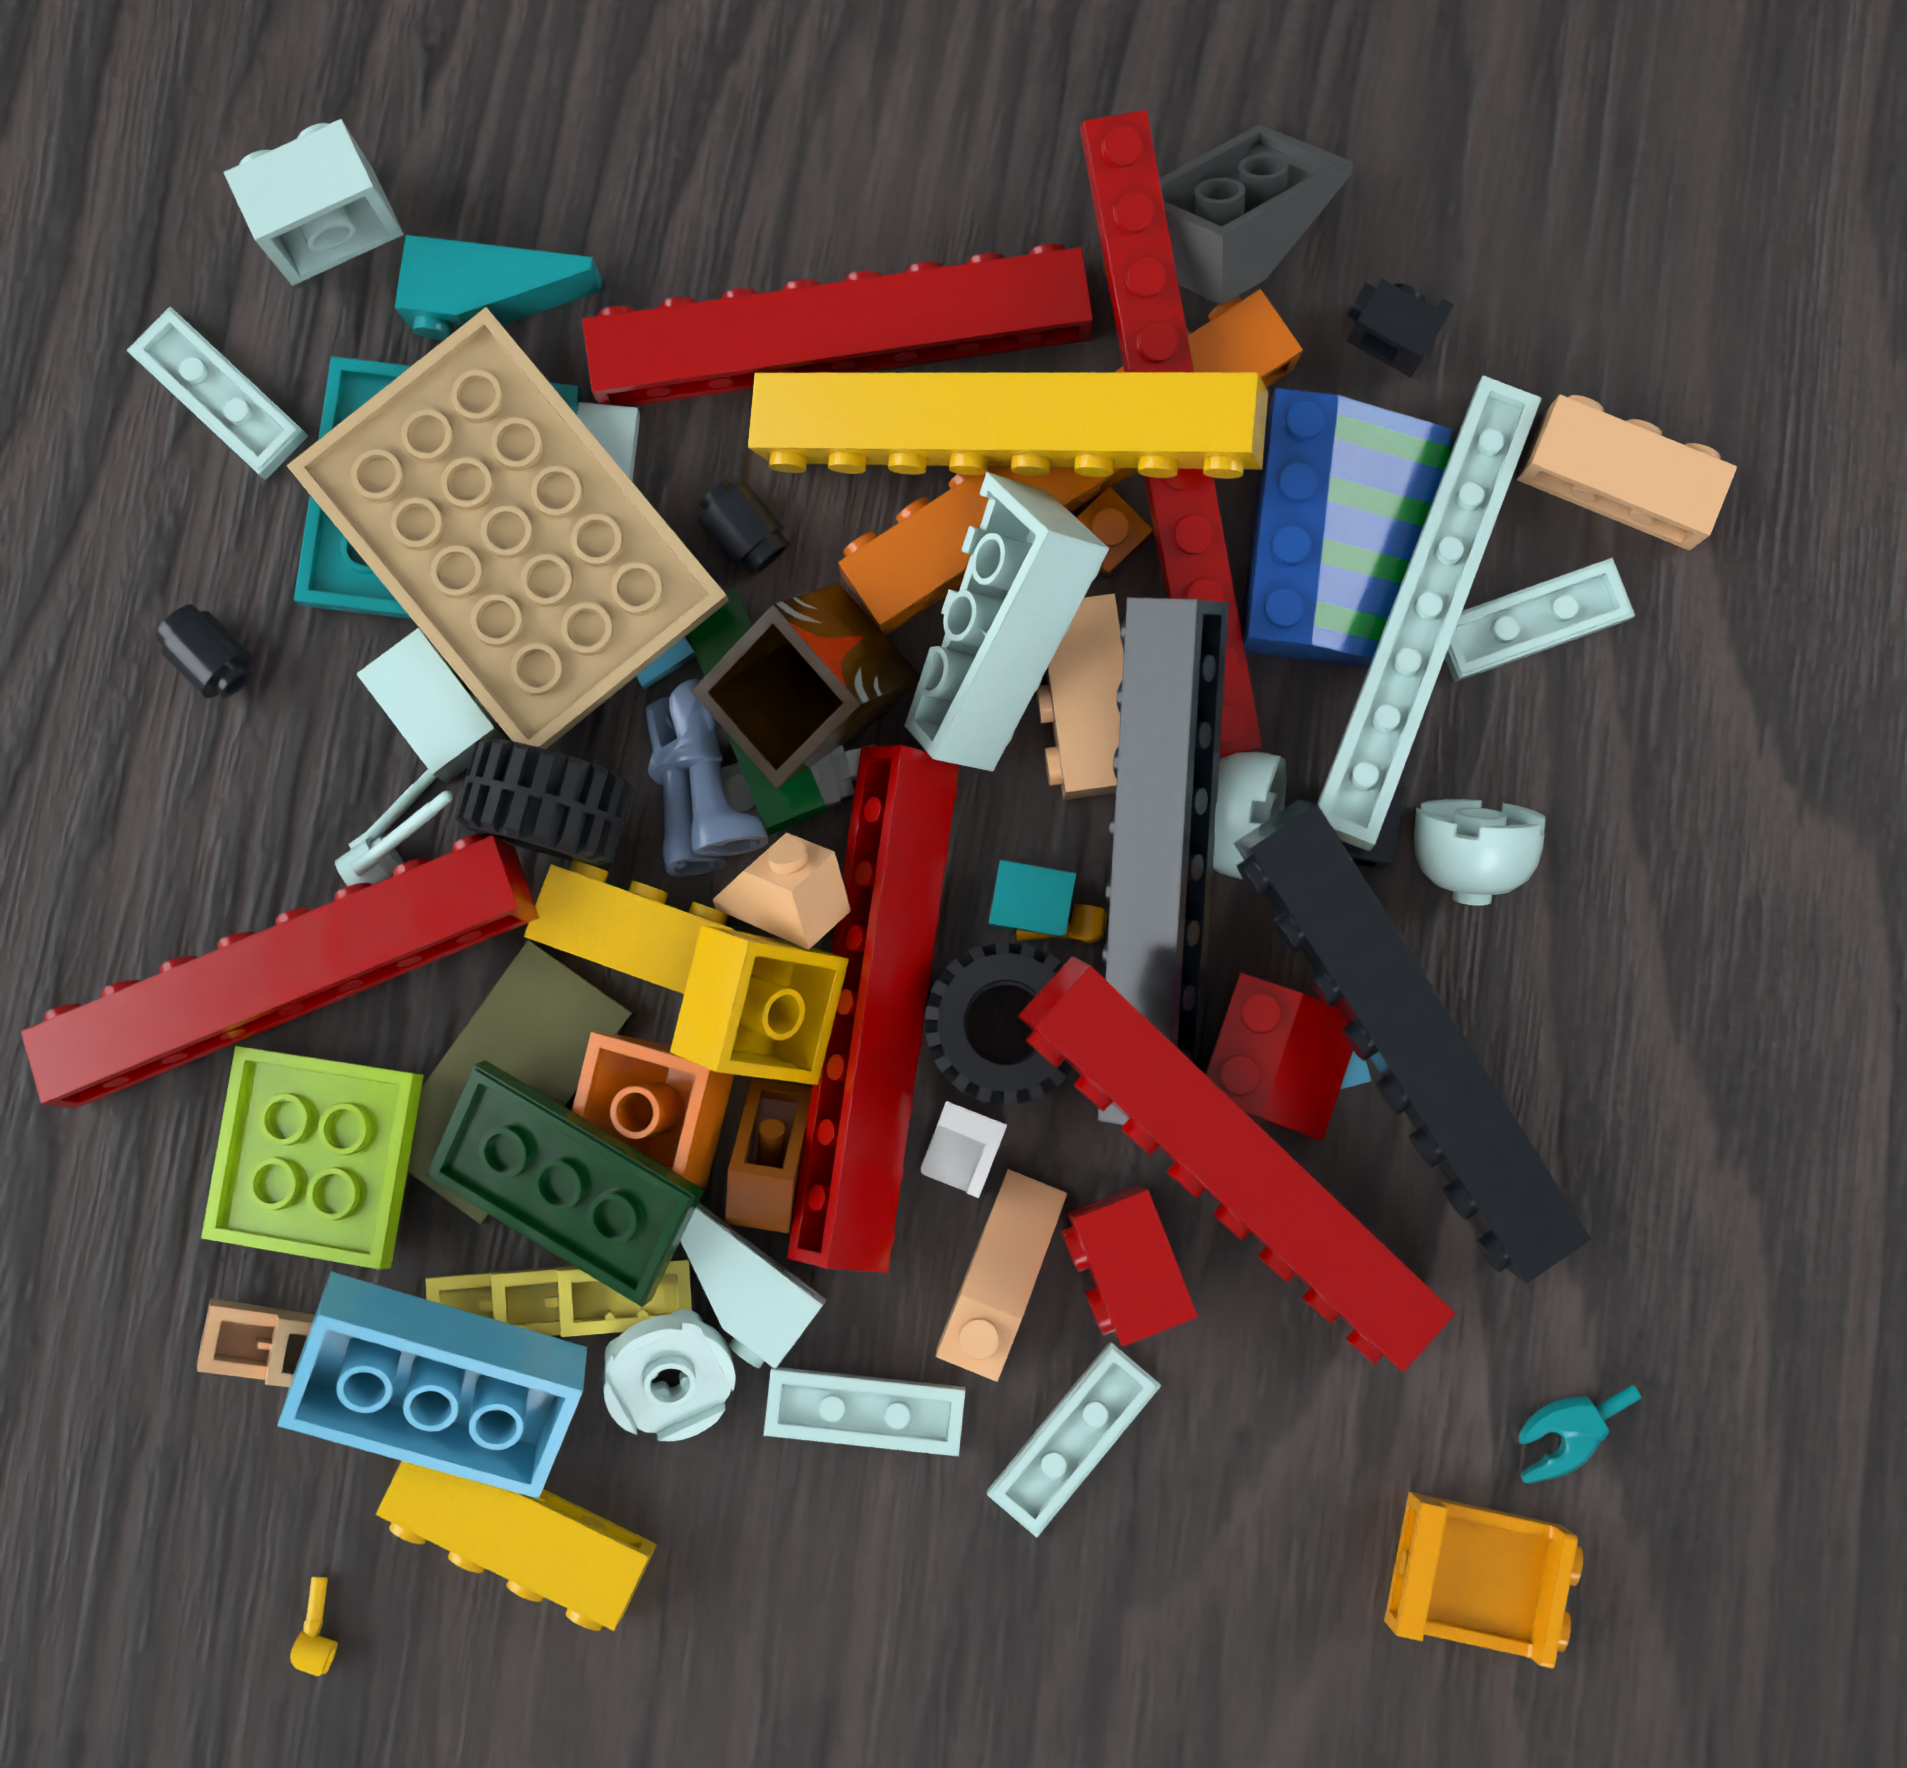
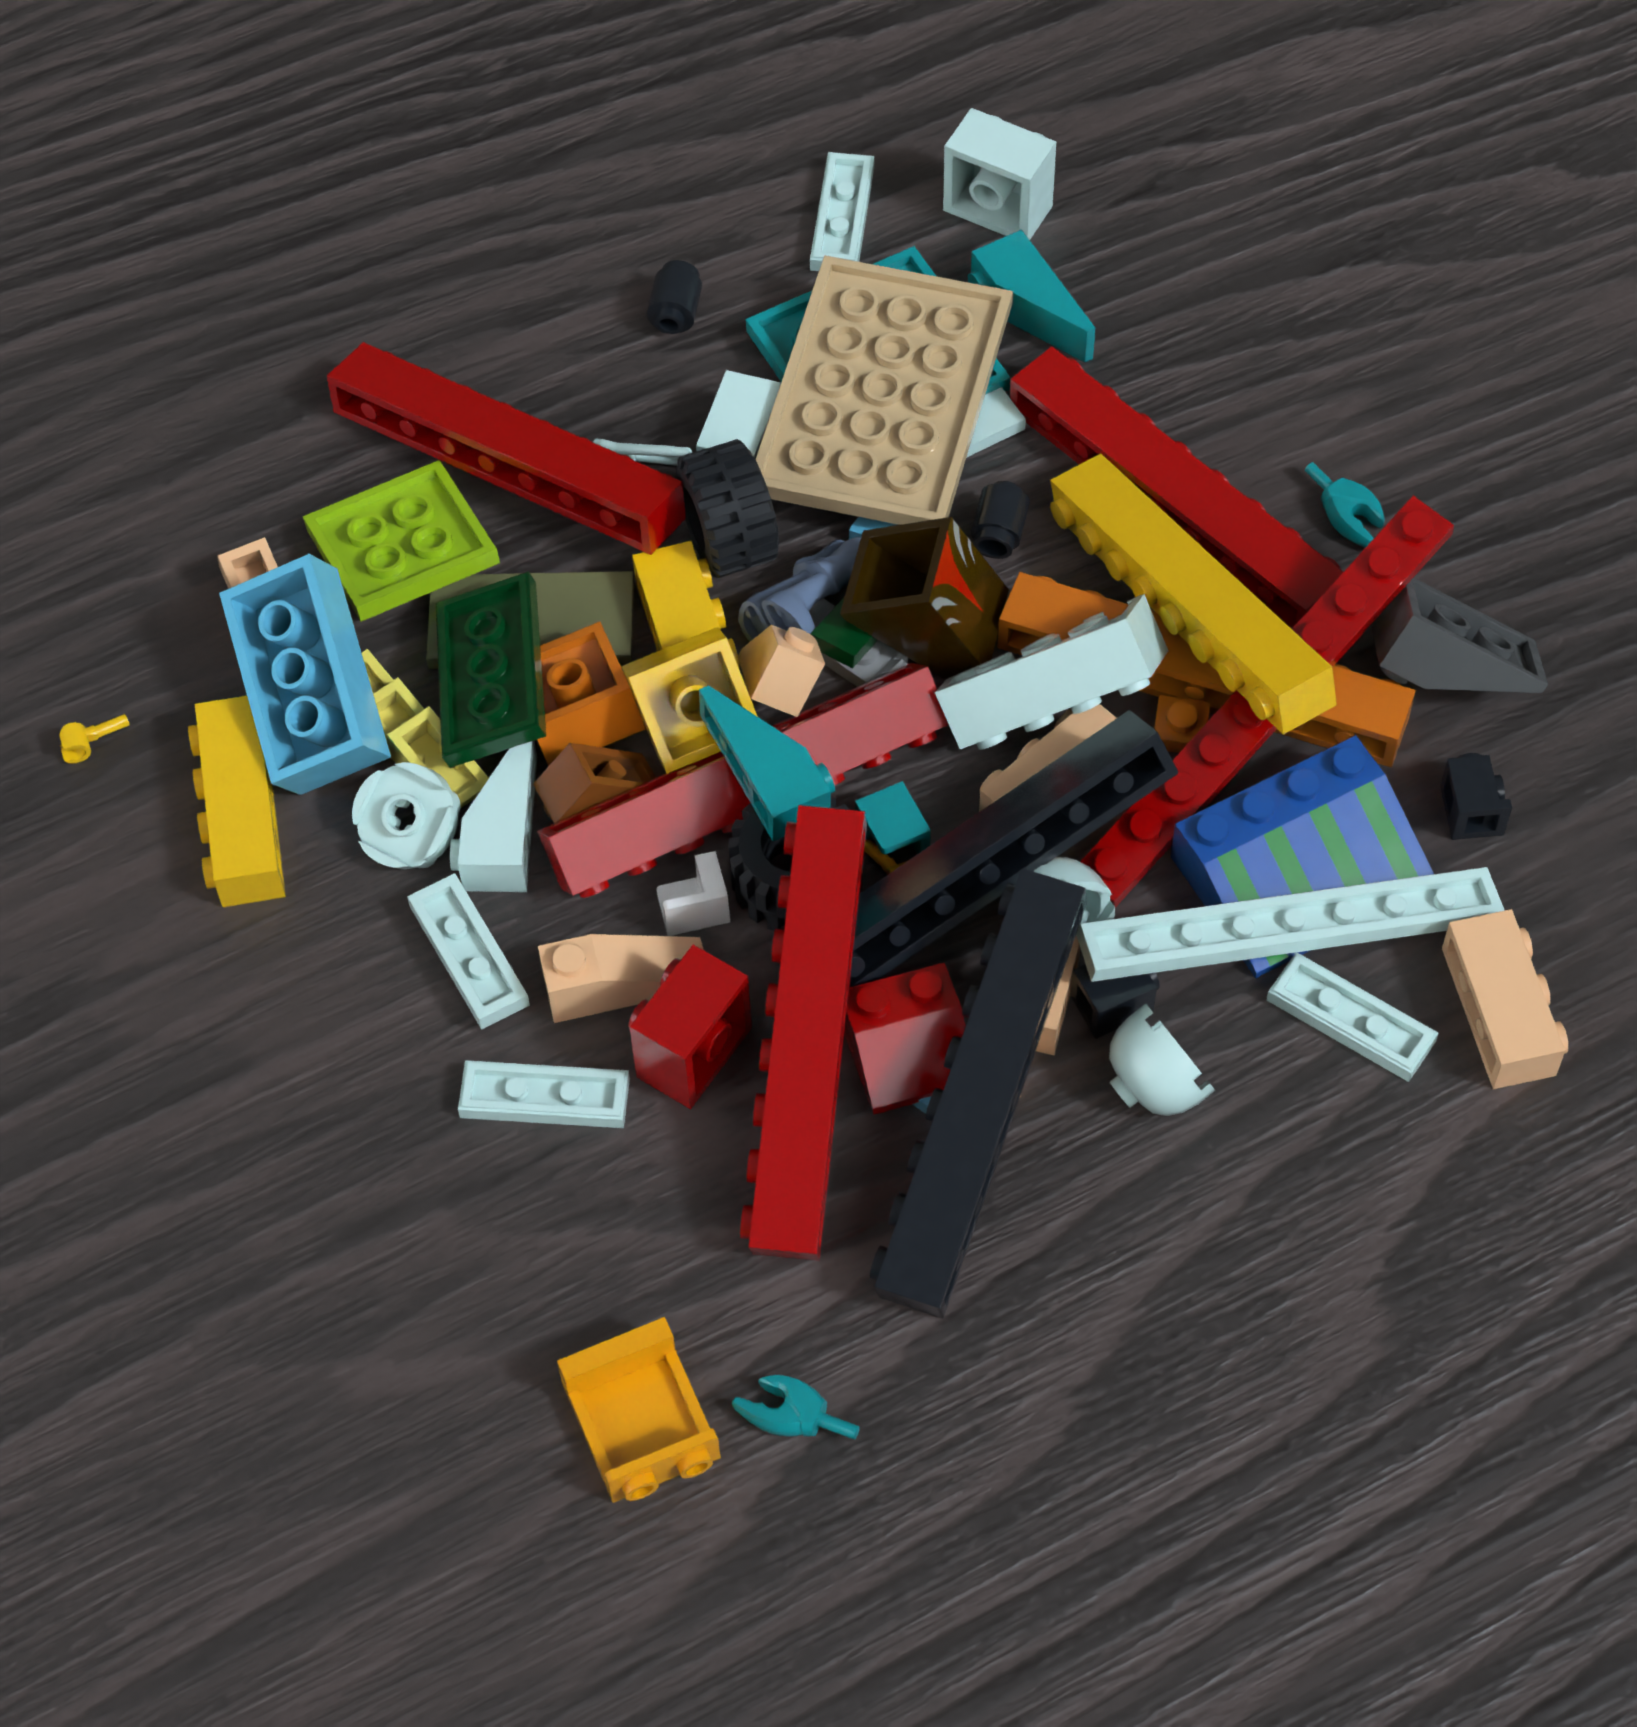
camera: 55 degrees right, 25 degrees down
(935, 997) = (768, 764): none -> teal slope
(970, 175) = (1345, 500): none -> teal hand

